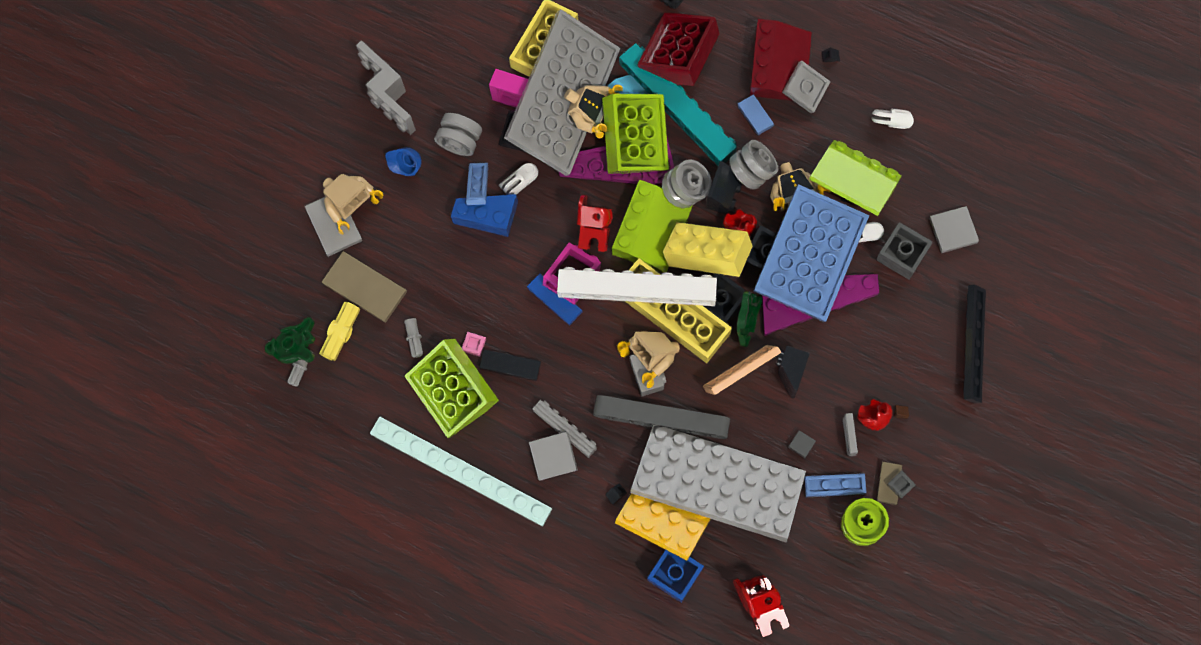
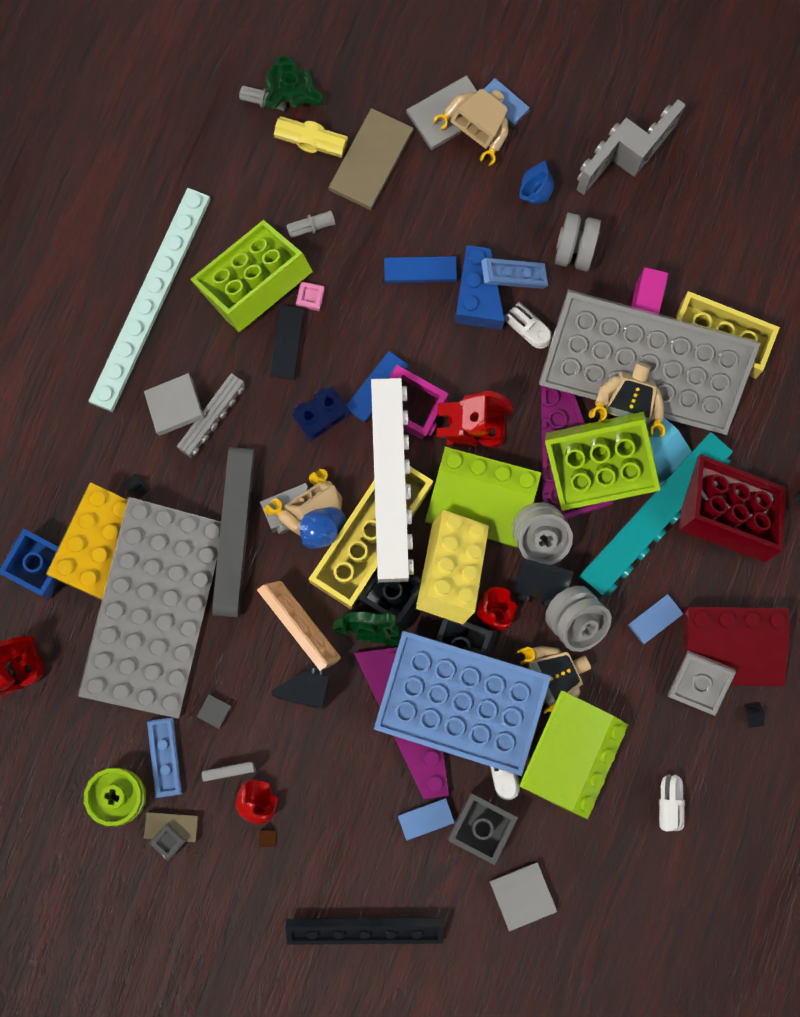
camera: 75 degrees right, 5 degrees up
(332, 173) = (516, 108): none -> medium blue tile
(462, 257) = (420, 269): none -> blue tile
(573, 343) = (320, 413): none -> clear blue brick
(669, 343) = (321, 527): none -> blue piece
(893, 293) = (426, 819): none -> medium blue tile

